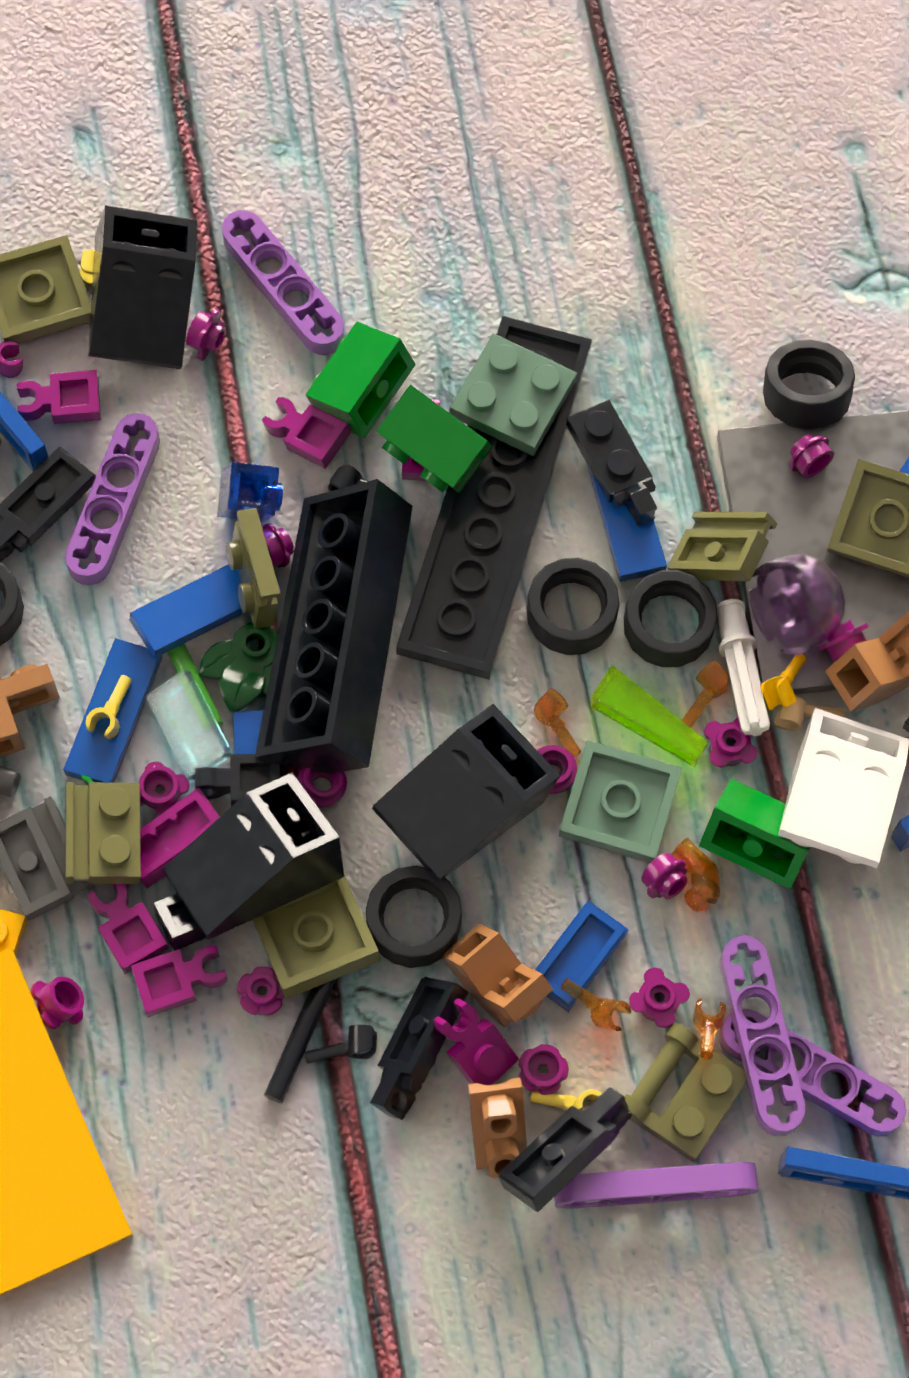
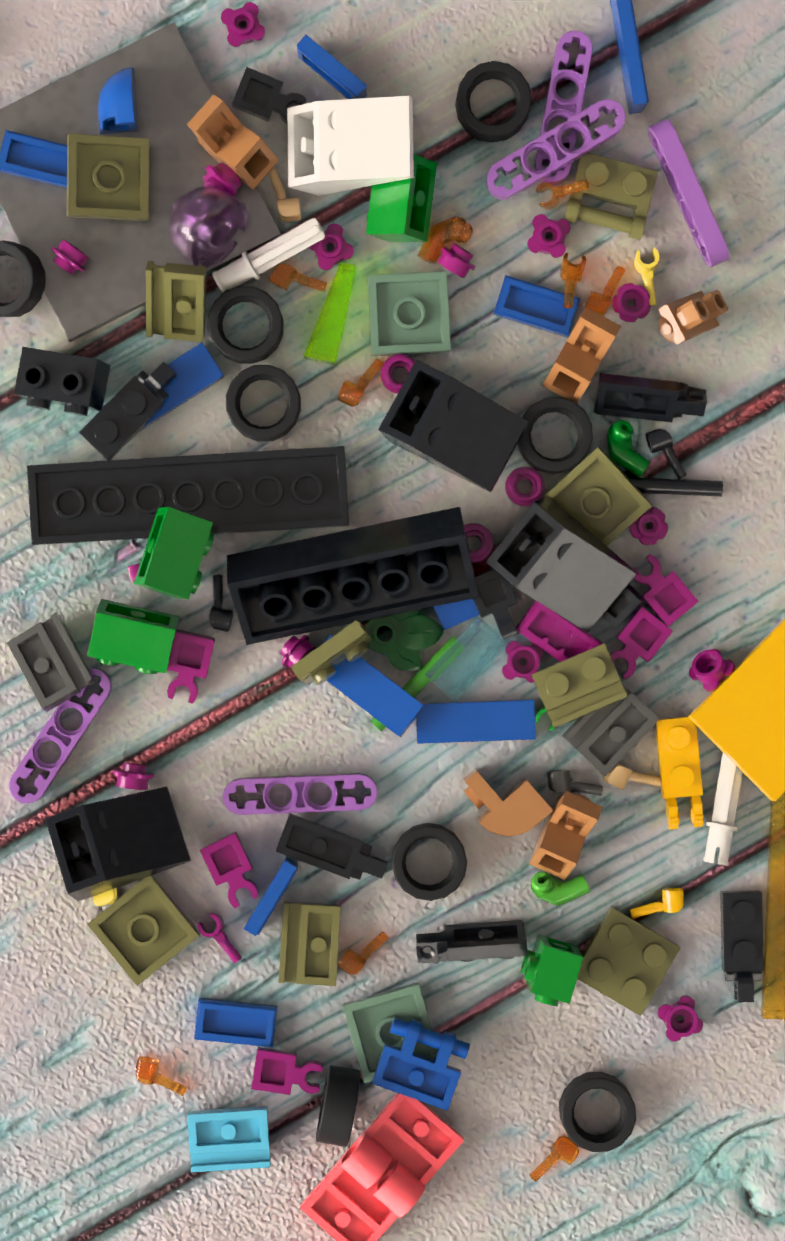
camera: 105 degrees left, 20 degrees up
(110, 709) = (476, 721): light yellow hand -> none
(249, 487) = (264, 685): clear blue brick -> none
(365, 850) = (533, 477): none -> magenta plate
(366, 292) = (51, 662): none -> dark grey plate
(366, 993) = (621, 448): none -> green arm
(479, 1047) = (637, 353): magenta plate -> none
(513, 394) = (102, 509): sand green plate -> none
(554, 1032) = (601, 302): none -> clear orange hand
(565, 1149) = (695, 261): black hinge -> none
(673, 403) = (61, 379): none -> black brick
(779, 688) = (279, 221): yellow hand -> none
(864, 955) = (497, 71): none -> black tyre

